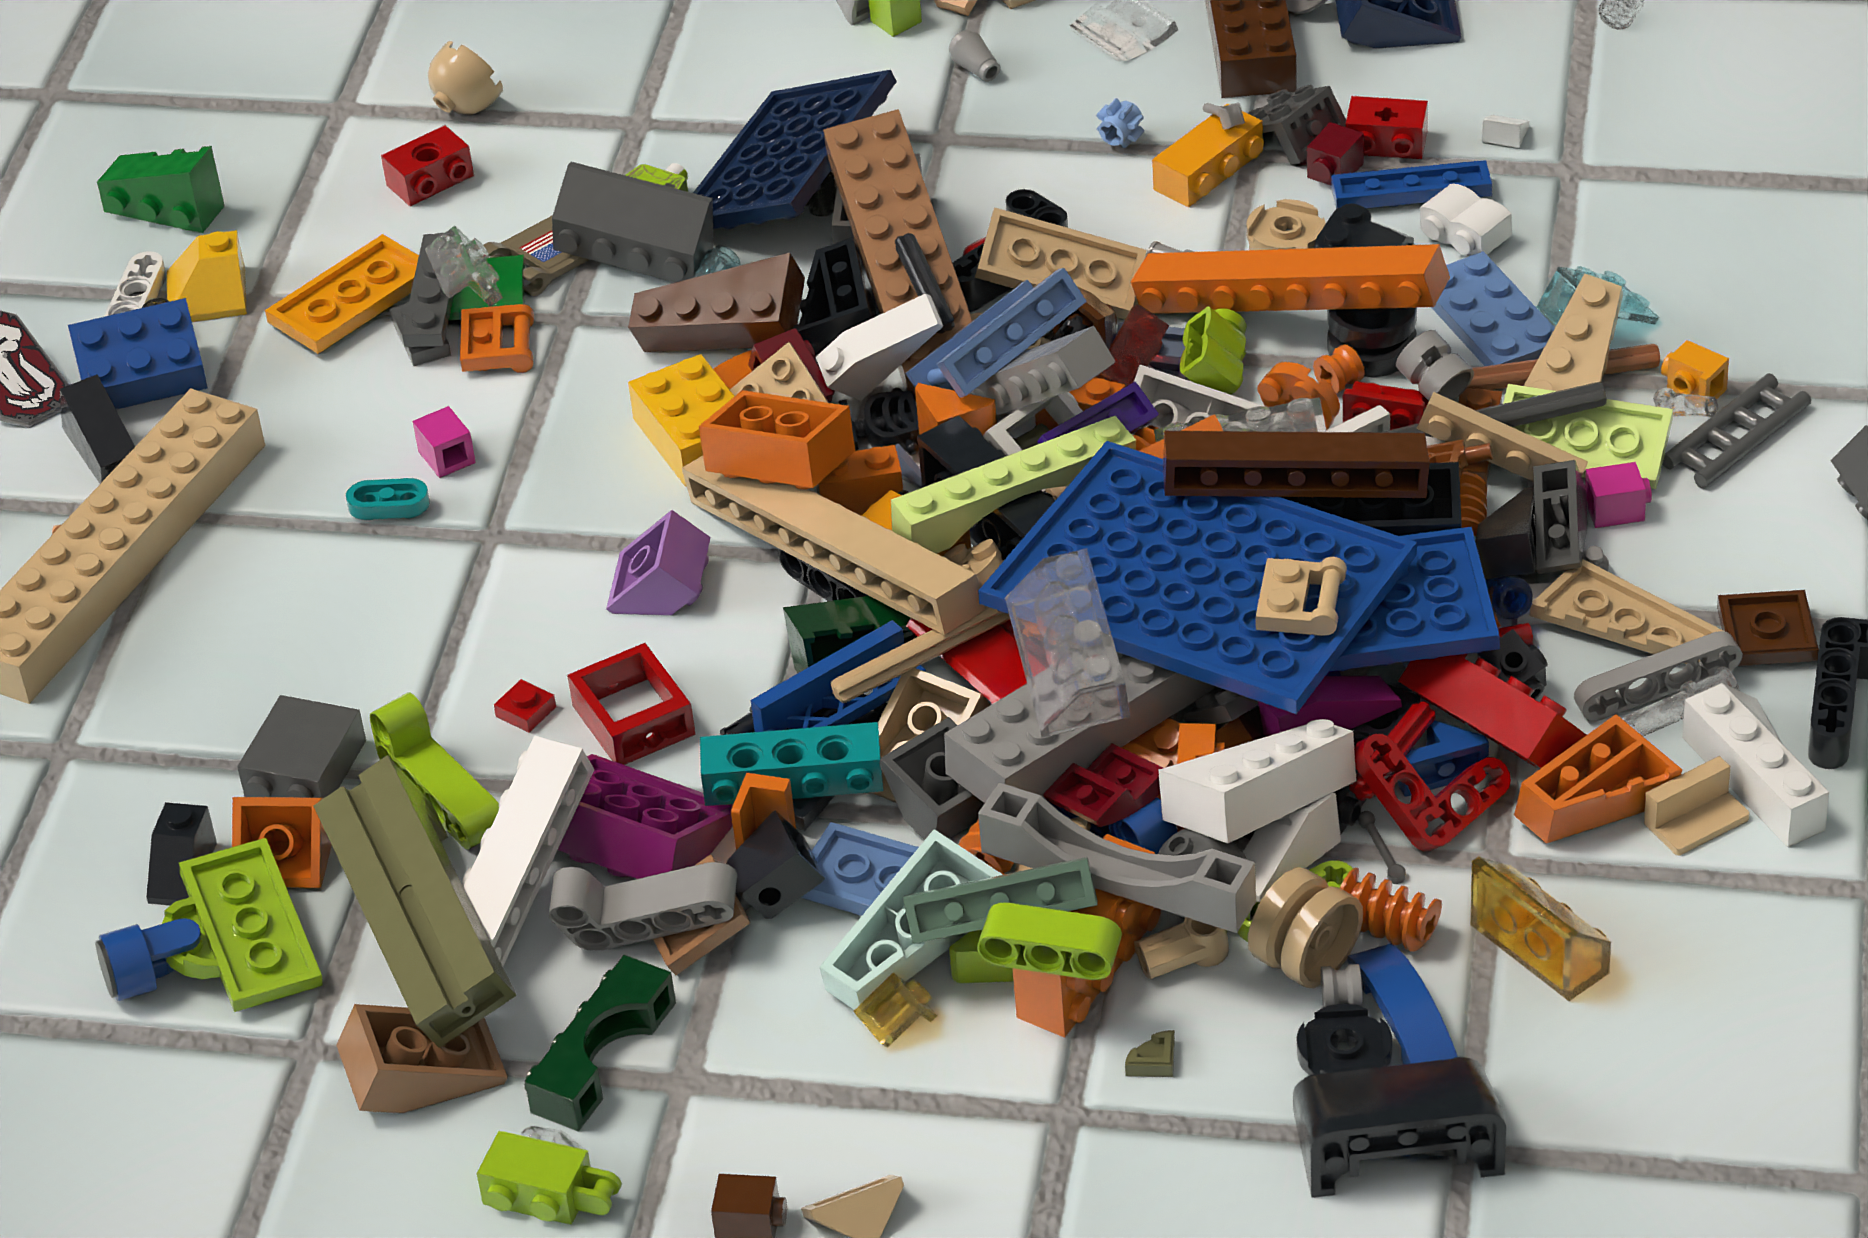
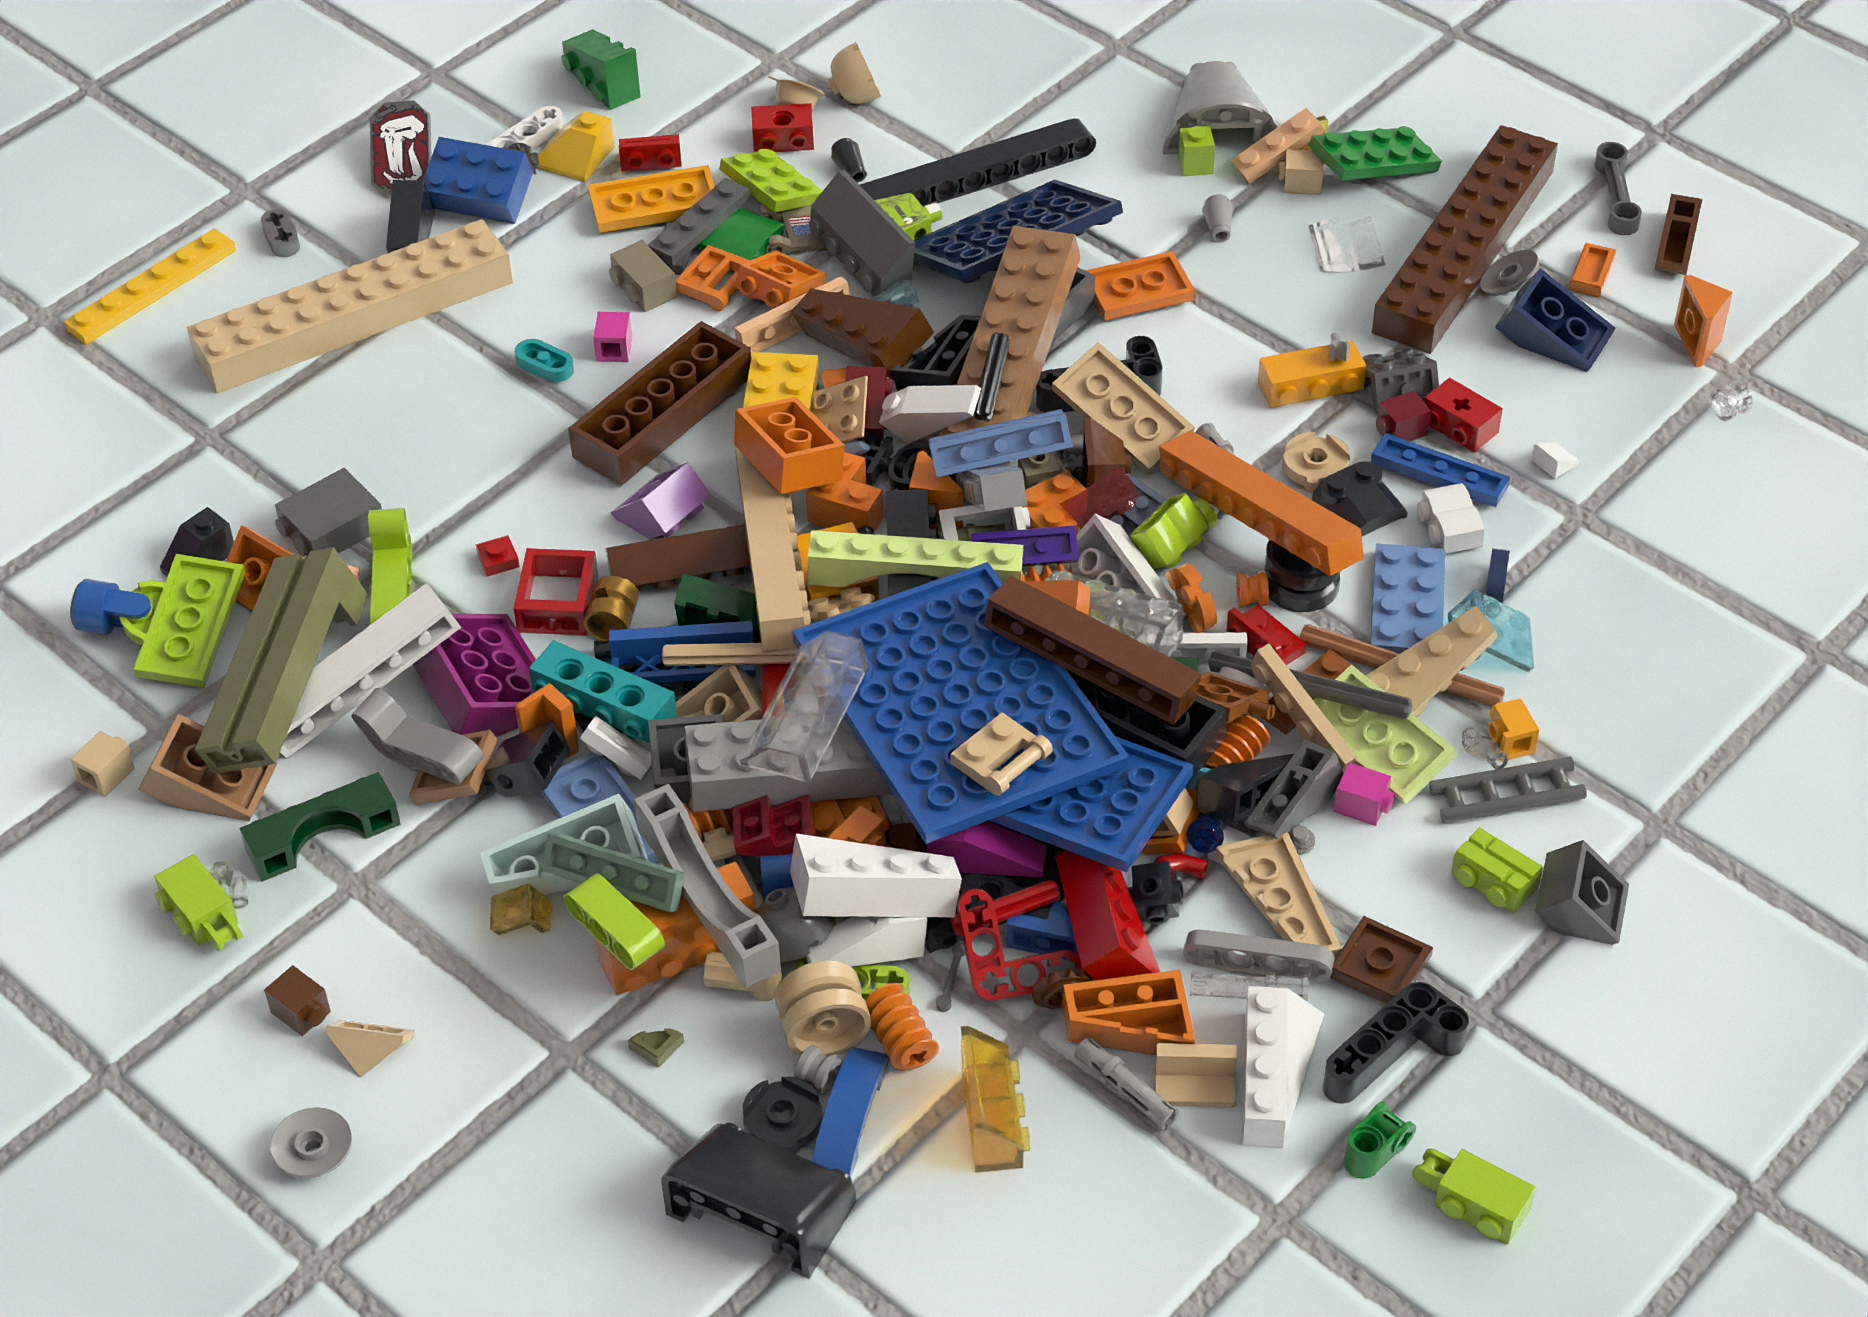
camera: 30 degrees right, 5 degrees up
(290, 1108) = (103, 763): none -> tan brick
(301, 250) = (650, 152): none -> red bracket
(410, 123) = (796, 93): none -> tan piece
(418, 370) = (643, 276): none -> dark tan brick
(463, 263) = (726, 214): clear bracket -> none
(473, 215) = (770, 180): none -> lime plate
(530, 165) = (847, 156): none -> black cone
(568, 477) = (660, 403): none -> reddish brown brick
(573, 310) = (777, 278): none -> orange plate
(614, 348) = (779, 322): none -> light nougat plate
(694, 101) = (988, 164): none -> black beam
(711, 689) = (610, 606): none -> pearl gold wheel
(734, 609) = (670, 557): none -> reddish brown wedge
(870, 814) = (607, 741): none -> white plate
(962, 149) = (1141, 285): none -> orange plate
(1120, 123) = (1270, 318): light blue gear -> none
(1432, 366) = (1309, 625): light grey wheel -> none
(1502, 800) = (1049, 990): none -> reddish brown gear
(1553, 248) = (1497, 574): none -> dark blue beam
(1639, 847) = (1114, 1073): none -> light grey pin
(1797, 498) = (1496, 870): none -> lime brick

